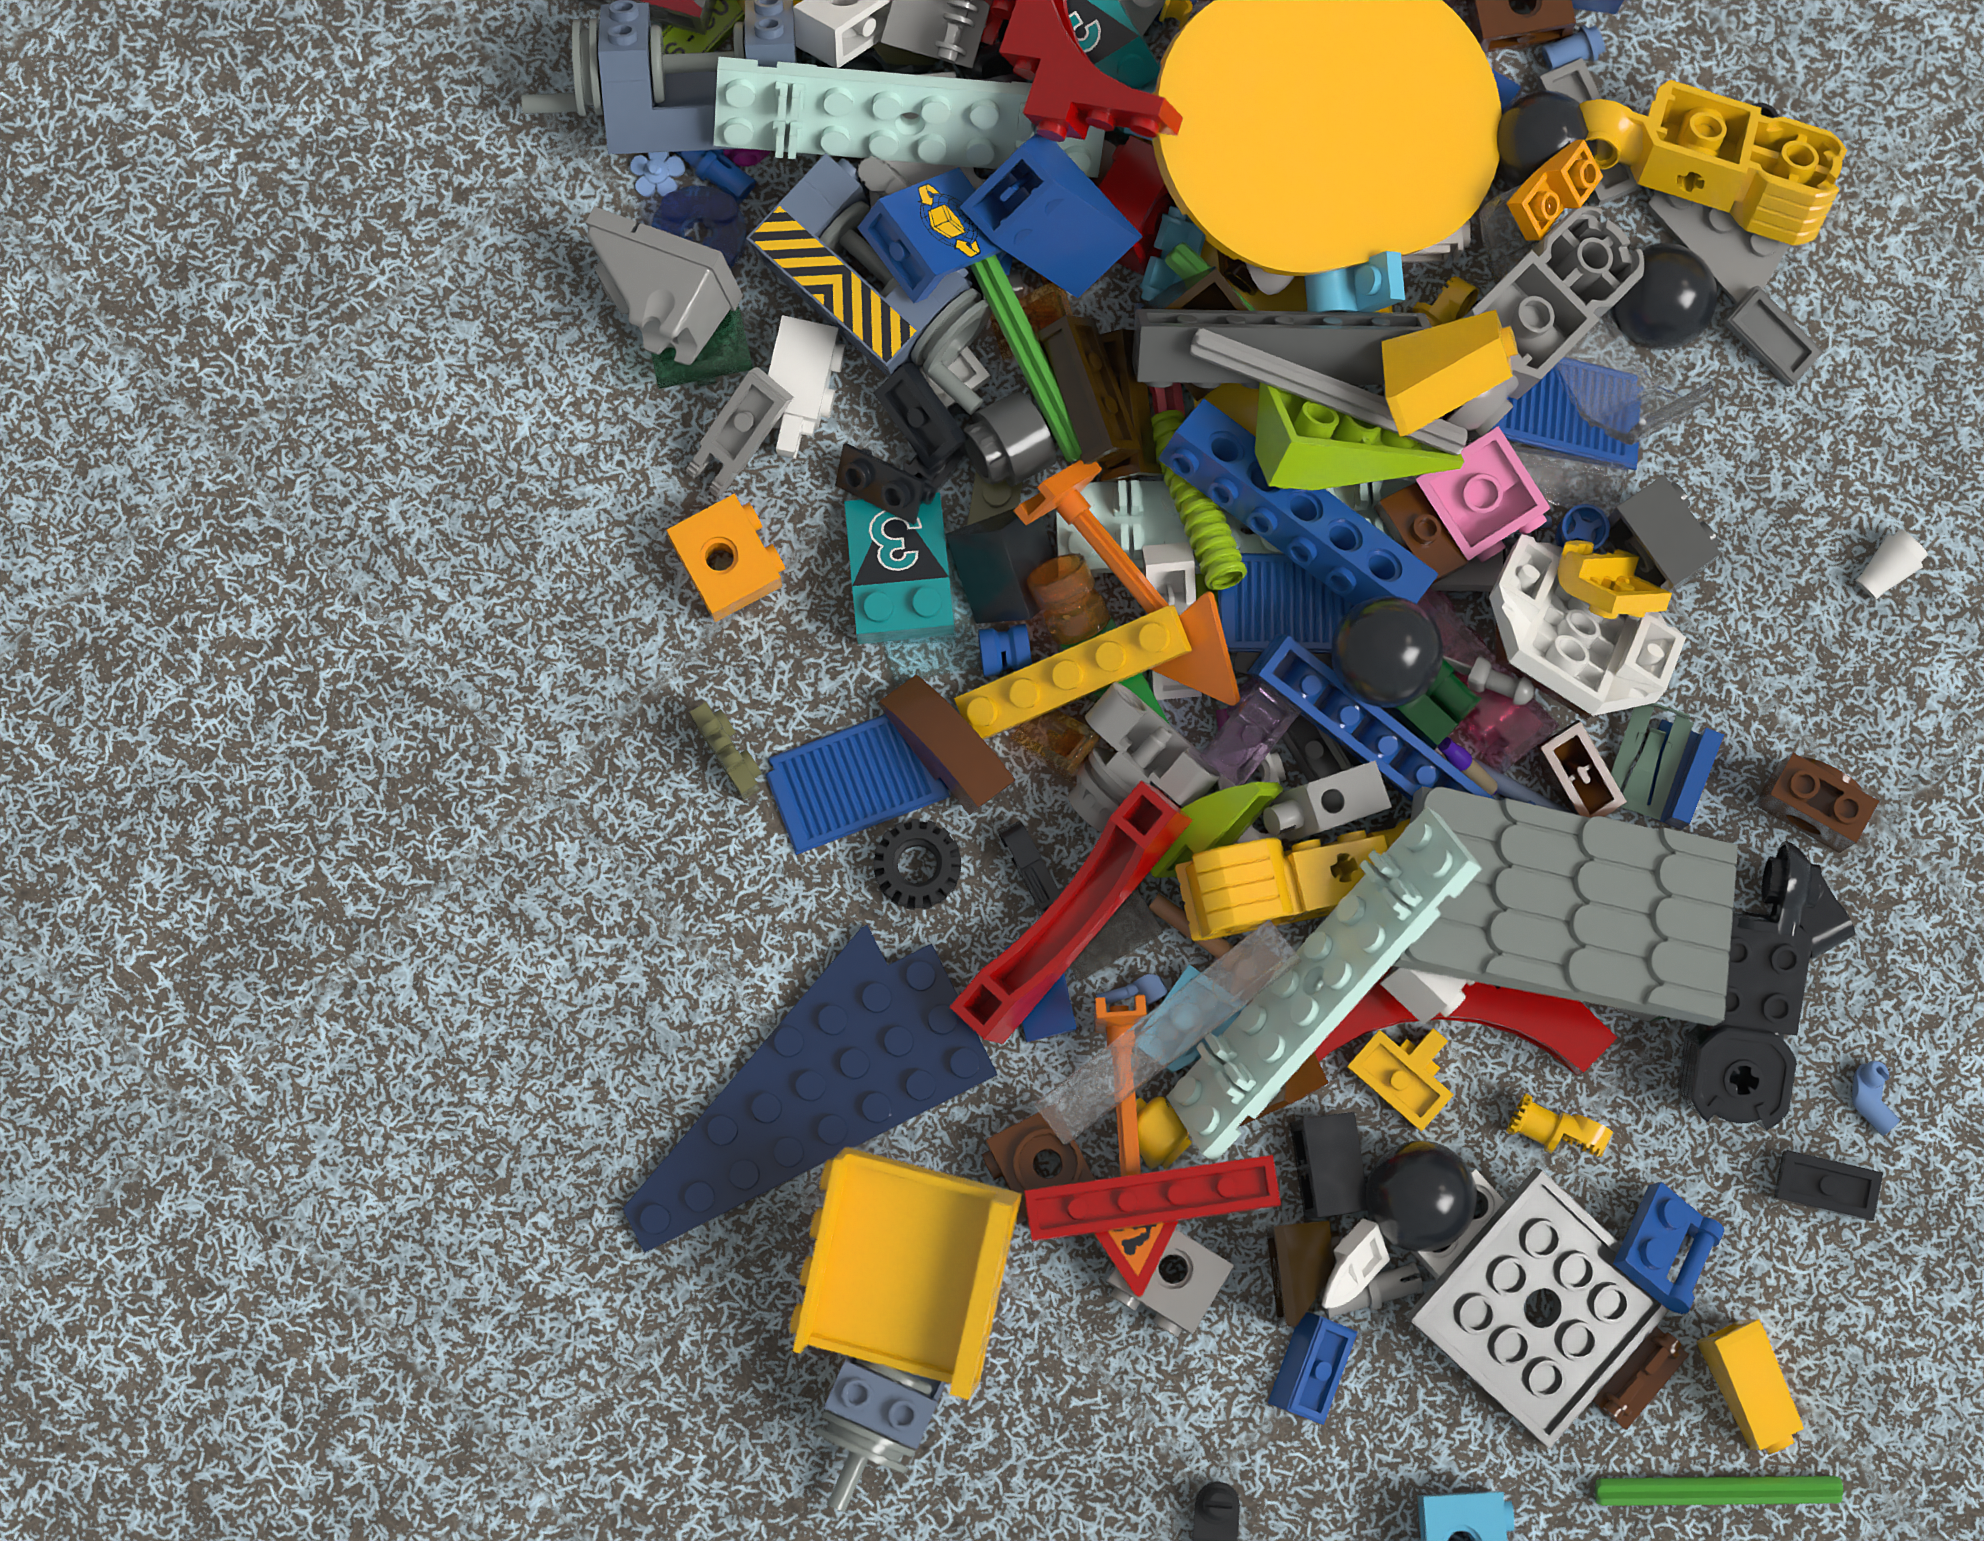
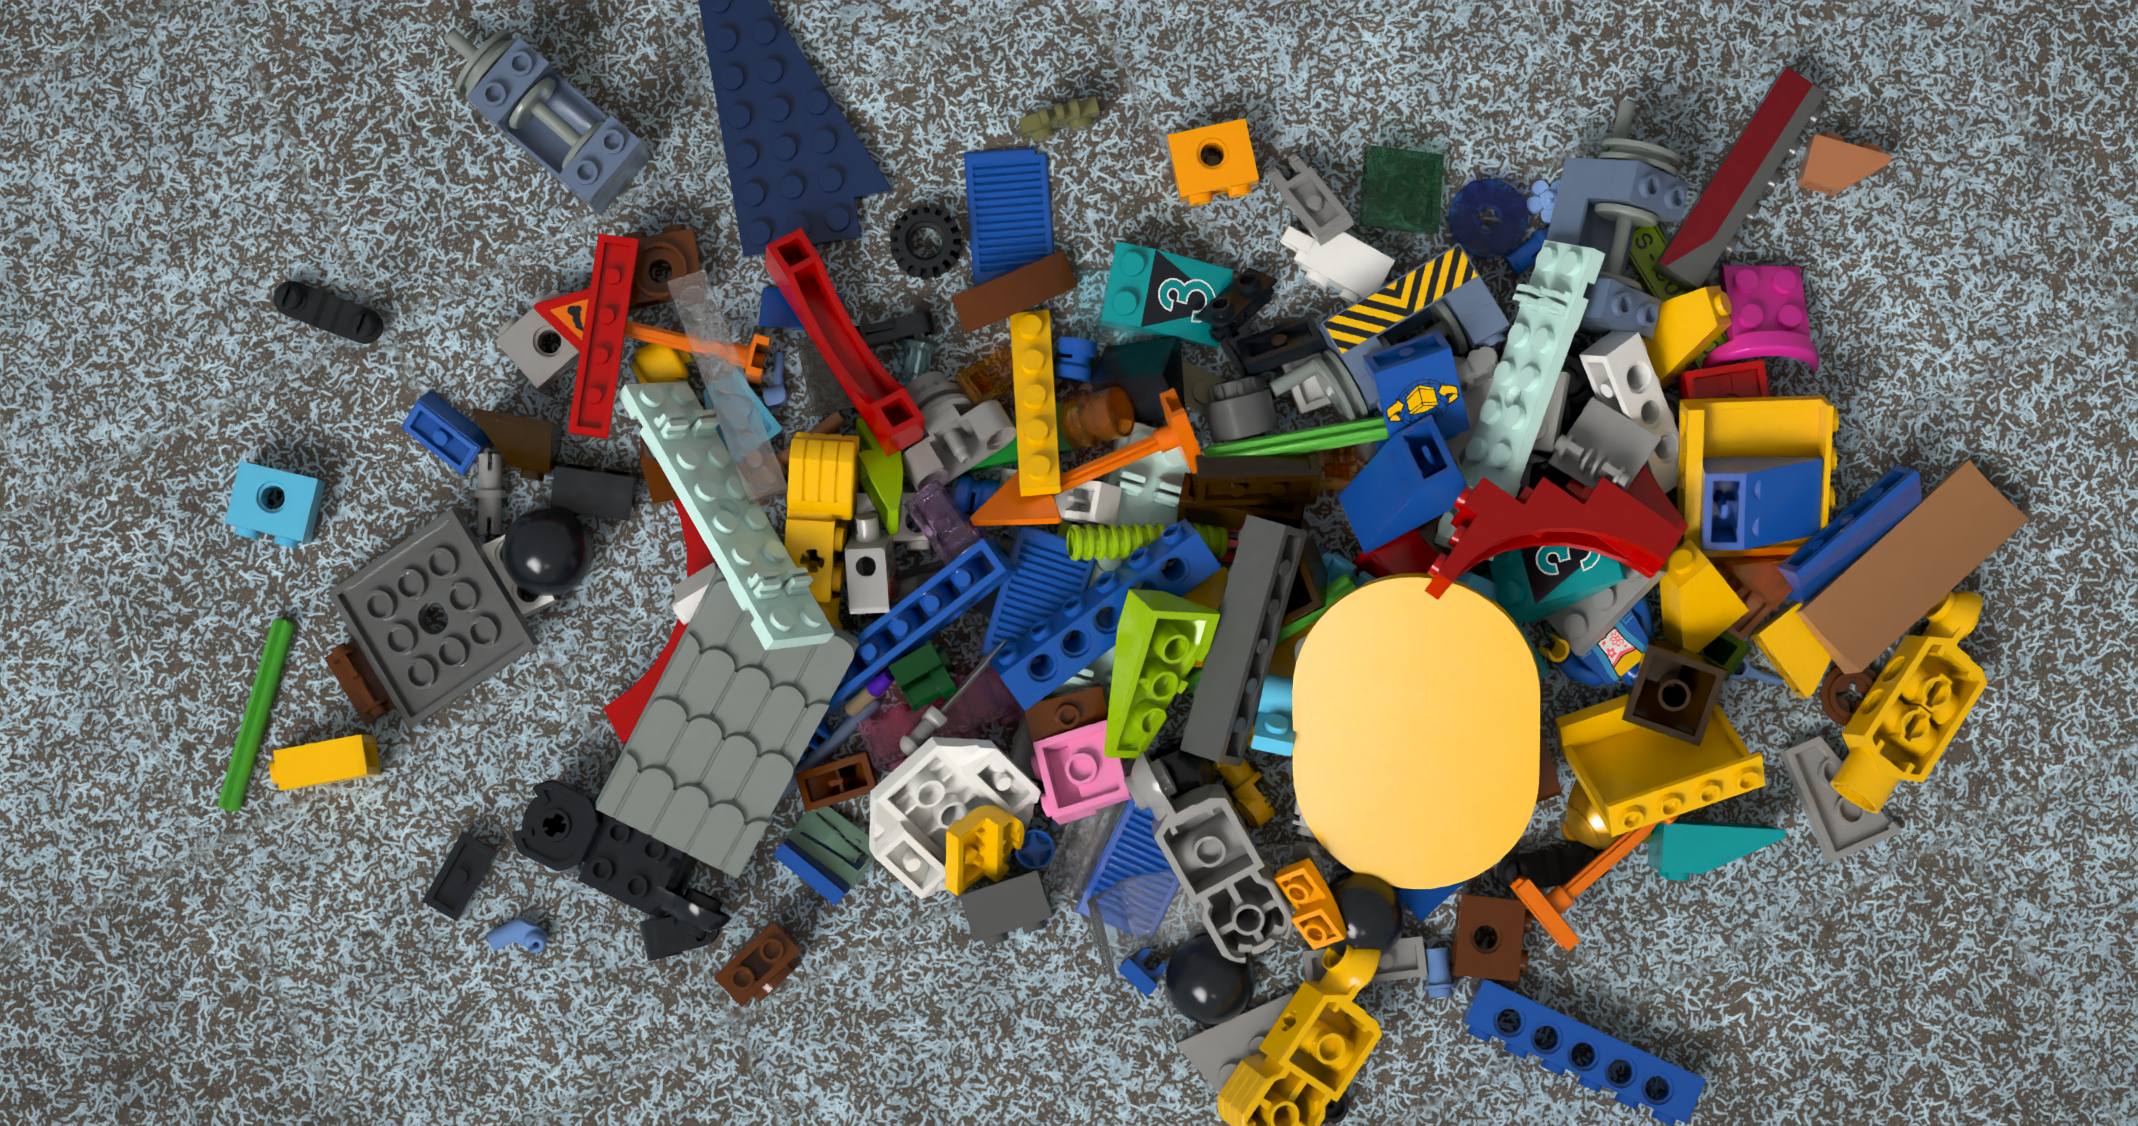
camera: 115 degrees right, 5 degrees up
(663, 283) = (1442, 166): light grey piece -> none
(905, 1268) = (603, 125): yellow panel -> none
(1062, 834) = (915, 360): none -> clear light blue bush
(1196, 716) = (967, 486): none -> blue wheel
(1318, 388) = (1192, 661): light grey axle -> none
(1358, 1262) = (511, 485): white plate -> none
(1387, 651) = (967, 641): black piece -> none
(1404, 1075) = (646, 571): yellow hinge -> none
(1444, 368) = (1179, 754): yellow slope -> none
(1550, 1127) = (572, 671): yellow connector -> none
(1655, 1241) = (458, 723): blue plate -> none
(1686, 369) = (1139, 975): none -> blue tile
(1772, 336) = (1150, 1057): tile -> none
(1892, 563) = (936, 1092): white cone -> none

